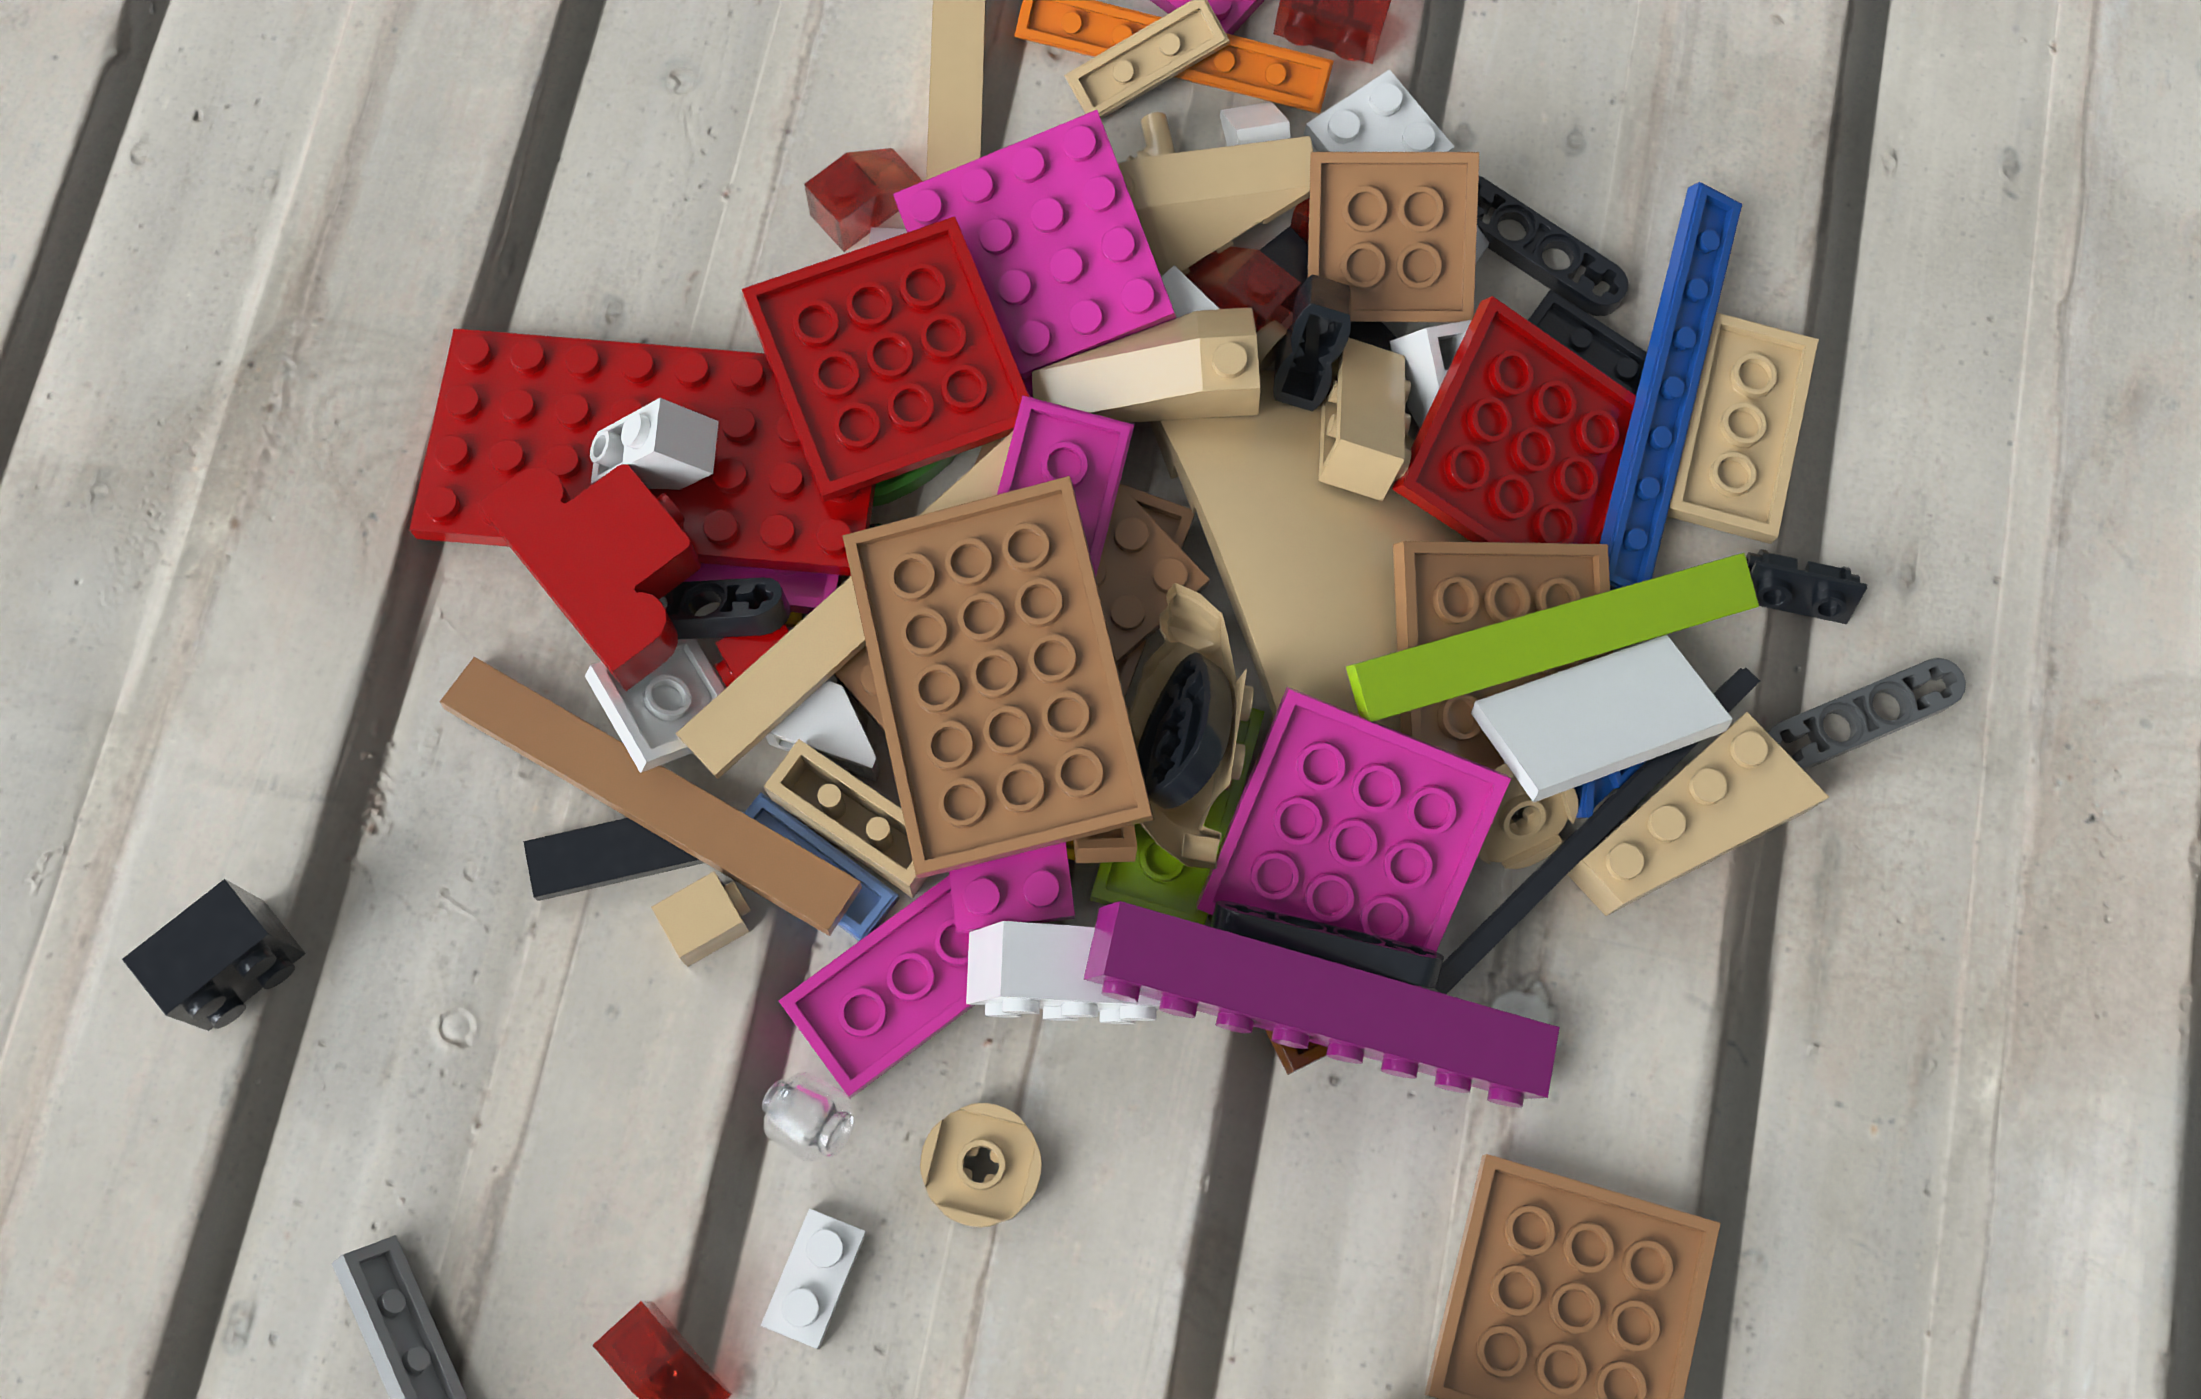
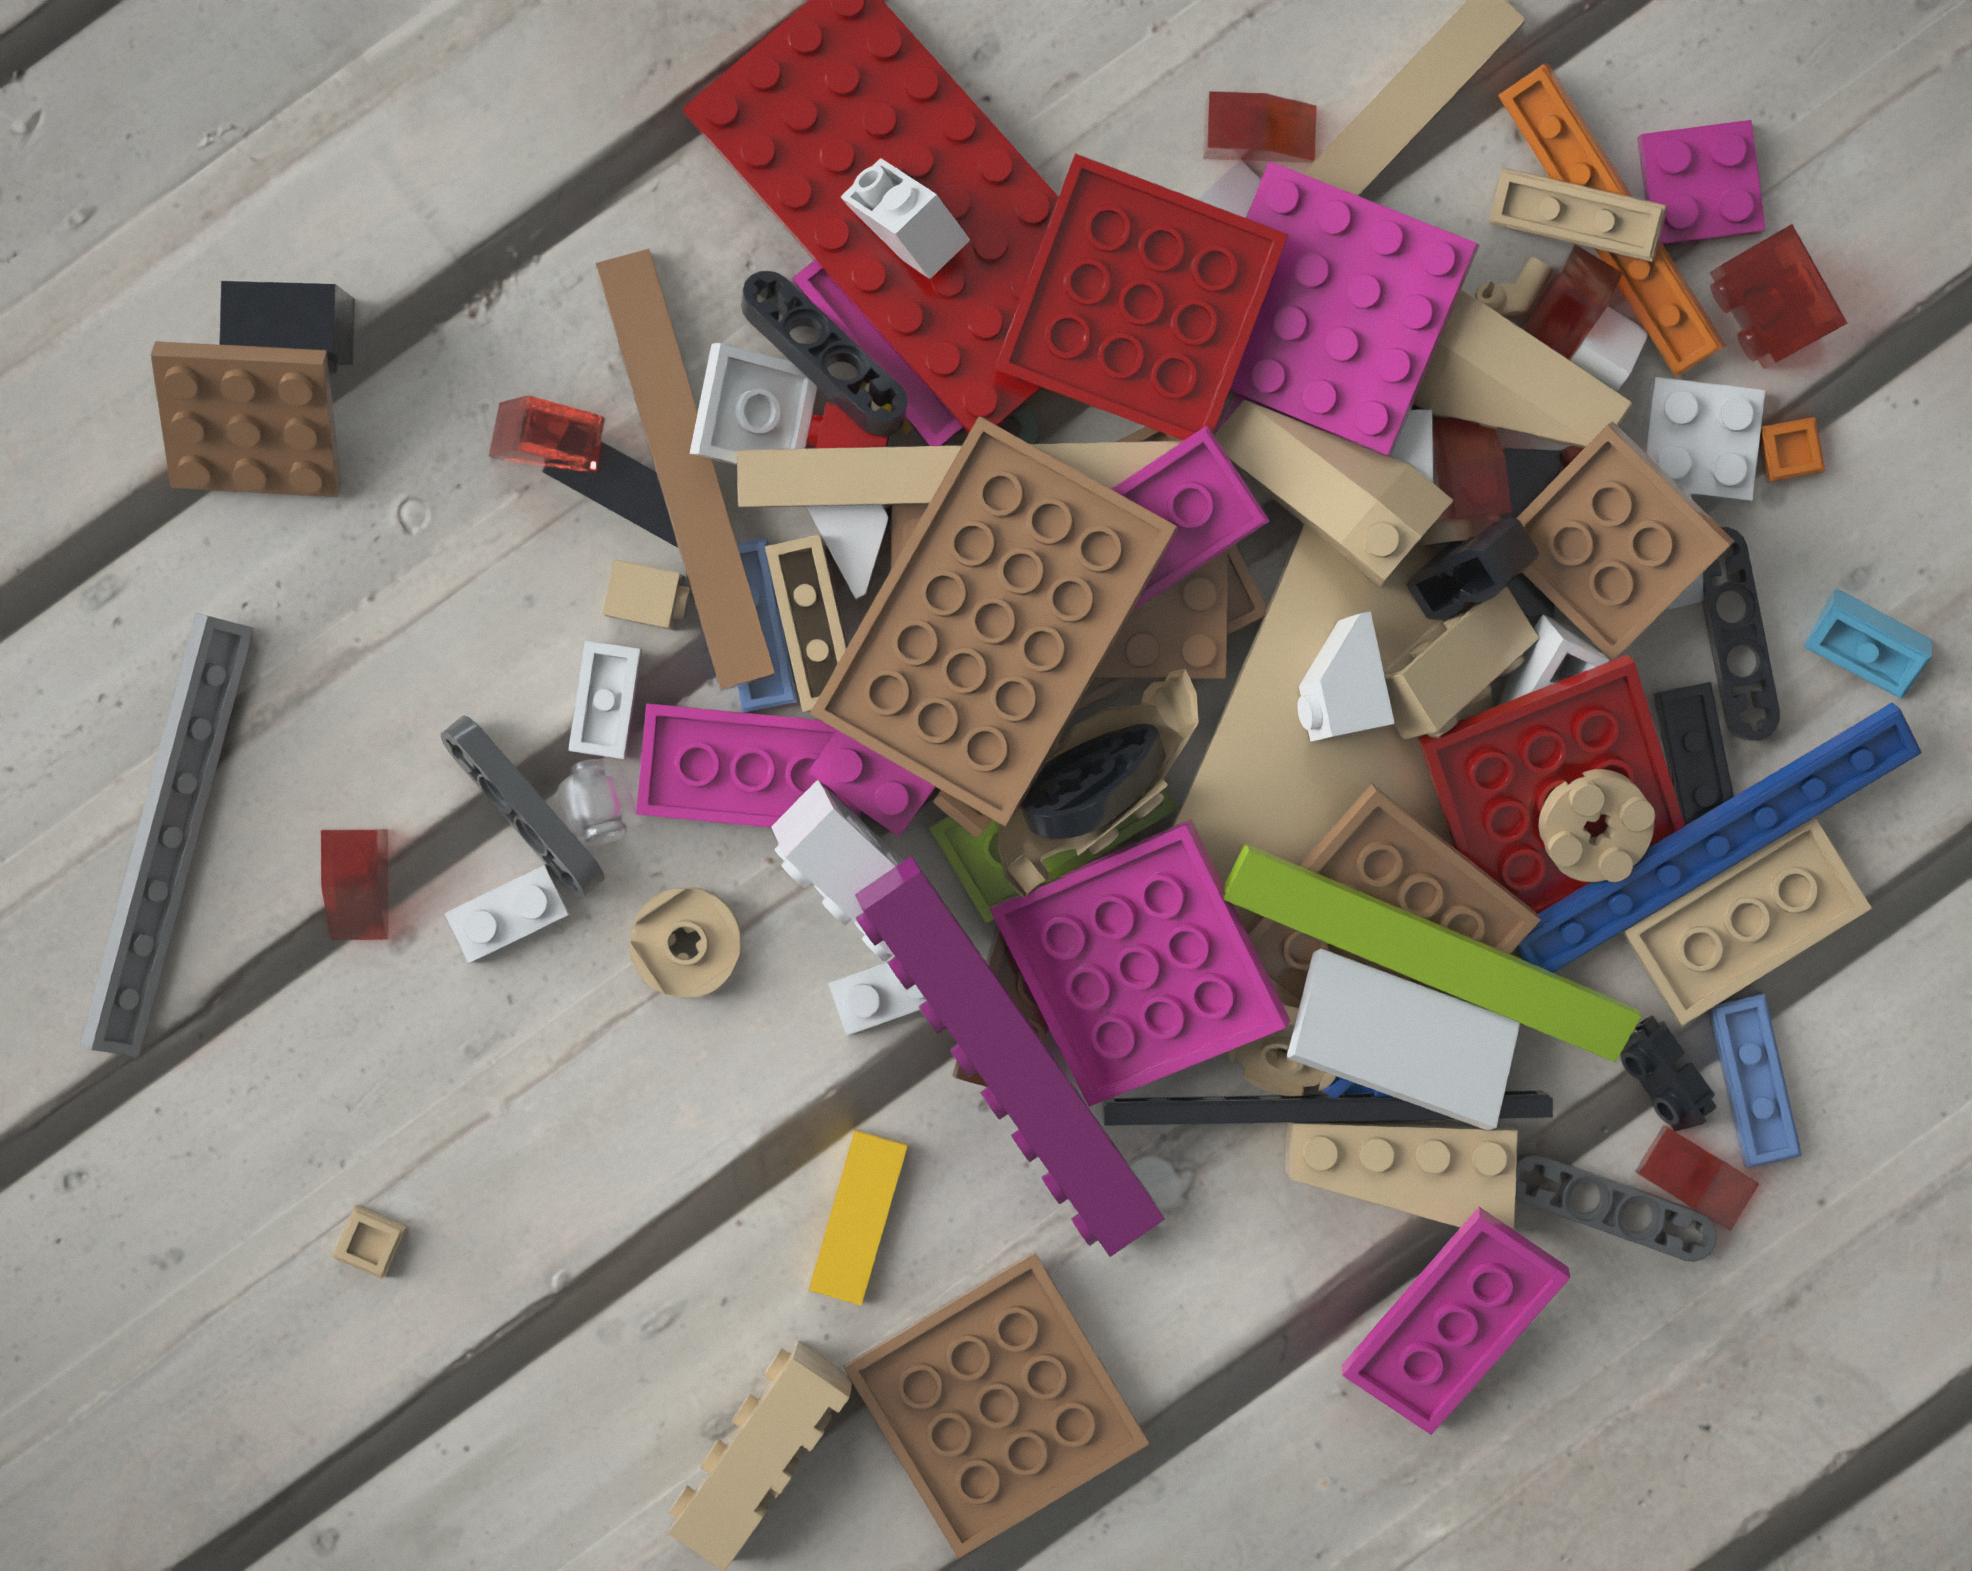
camera: 50 degrees right, 15 degrees up
(241, 1060) = (247, 418): none -> medium nougat plate
(509, 862) = (546, 434): none -> clear red slope
(601, 560) = (792, 271): red brick -> none
(742, 1030) = (605, 700): none -> white plate
(749, 1175) = (522, 806): none -> dark grey beam
(1173, 1063) = (872, 998): none -> white plate
(1199, 112) = (1572, 302): none -> clear red slope
(1304, 486) = (1345, 683): none -> white slope
(1322, 1261) = (858, 1217): none -> yellow tile
(1332, 943) = (1052, 1017): black beam -> none
(1447, 95) = (1791, 450): none -> orange tile
(1606, 437) = (1615, 850): none -> tan plate
(1629, 175) = (1869, 643): none -> medium azure slope
(1847, 899) = (1455, 1320): none -> dark pink plate
(1864, 536) = (1754, 1080): none -> medium blue tile
(1895, 639) = (1697, 1177): none -> clear red slope

